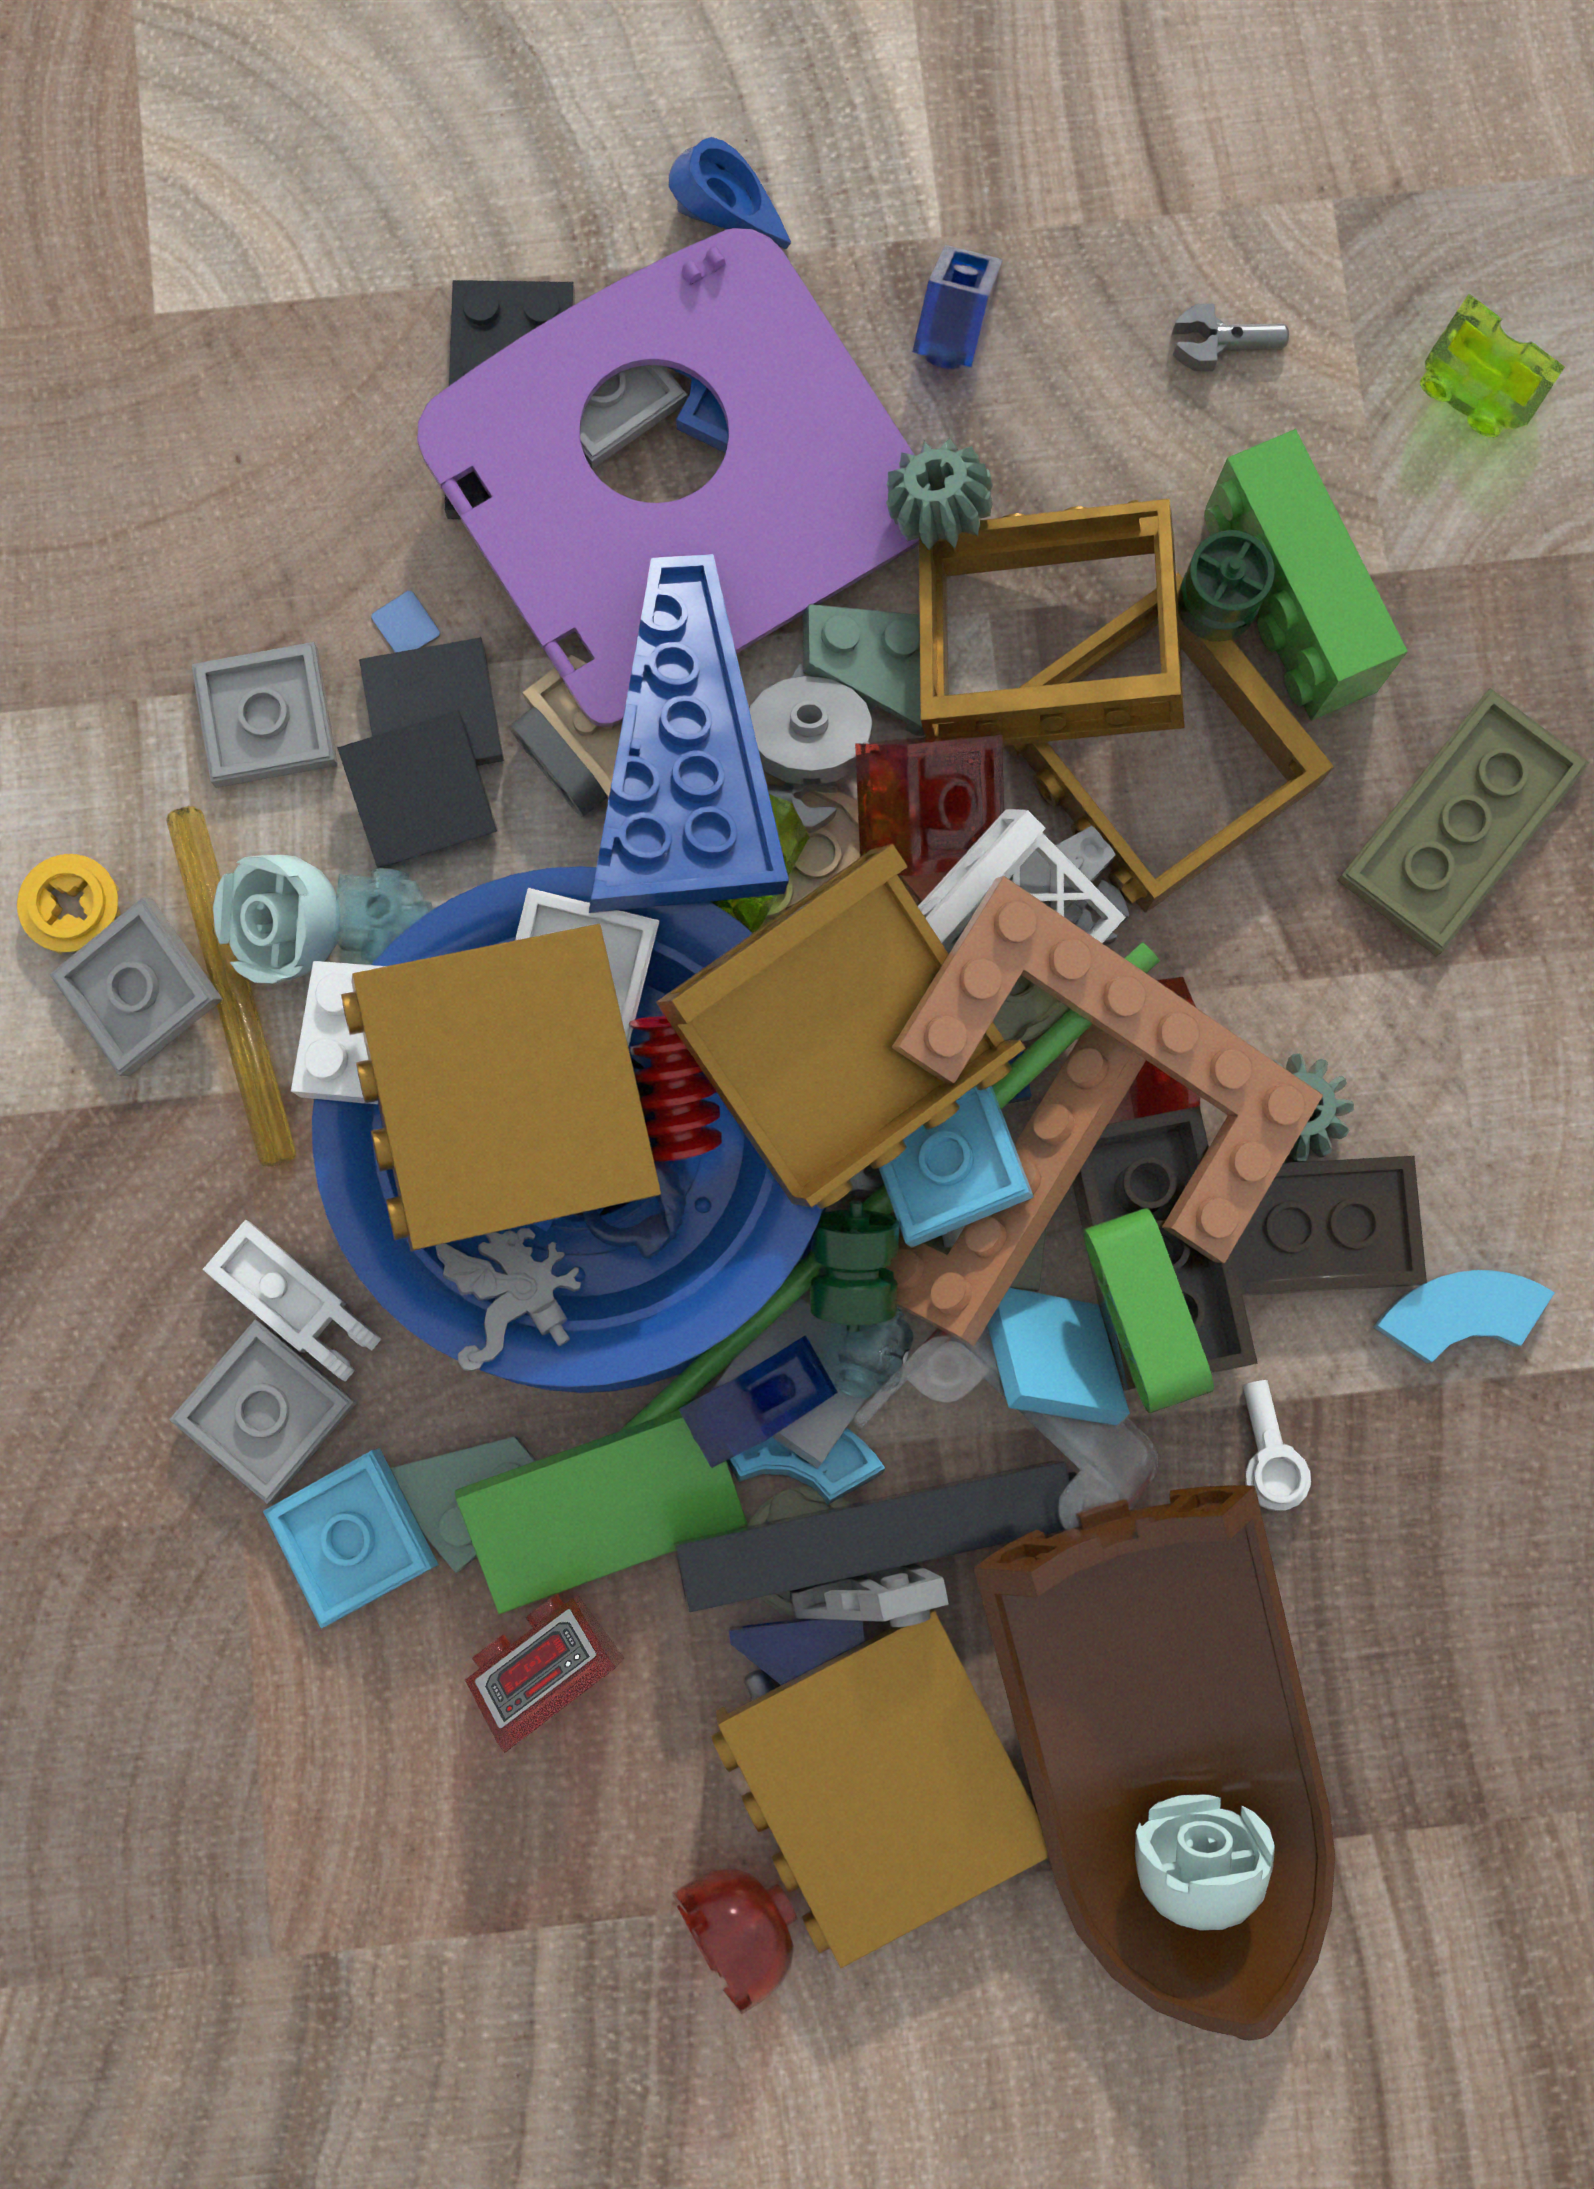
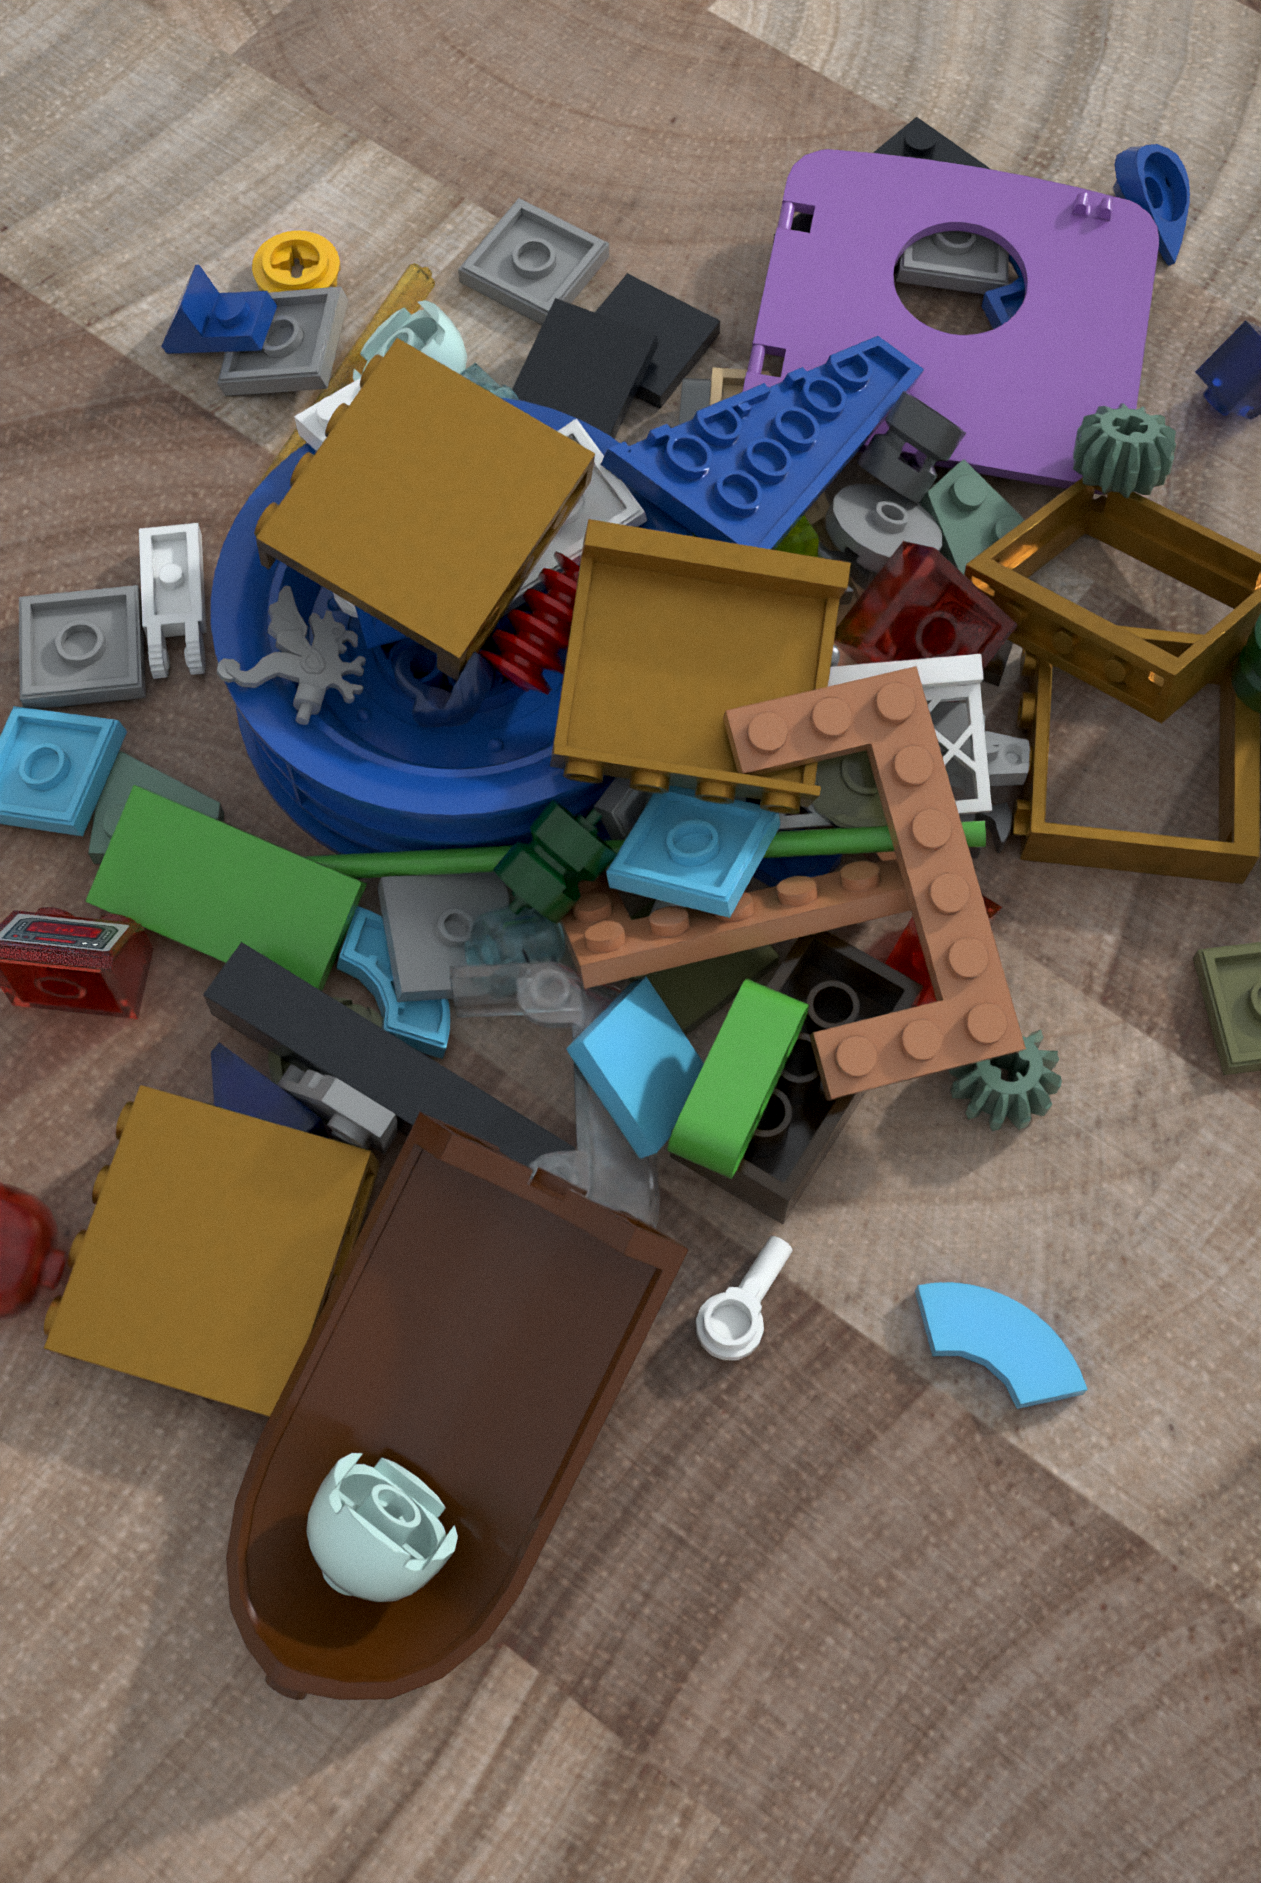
camera: 45 degrees right, 15 degrees down
(63, 1019) = (217, 320): none -> blue slope
(405, 623) = (682, 282): medium blue sticker -> none
(758, 1402) = (398, 897): clear blue slope -> none
(770, 635) = (923, 429): none -> dark grey wheel
(1335, 1229) = (944, 1177): dark brown plate -> none

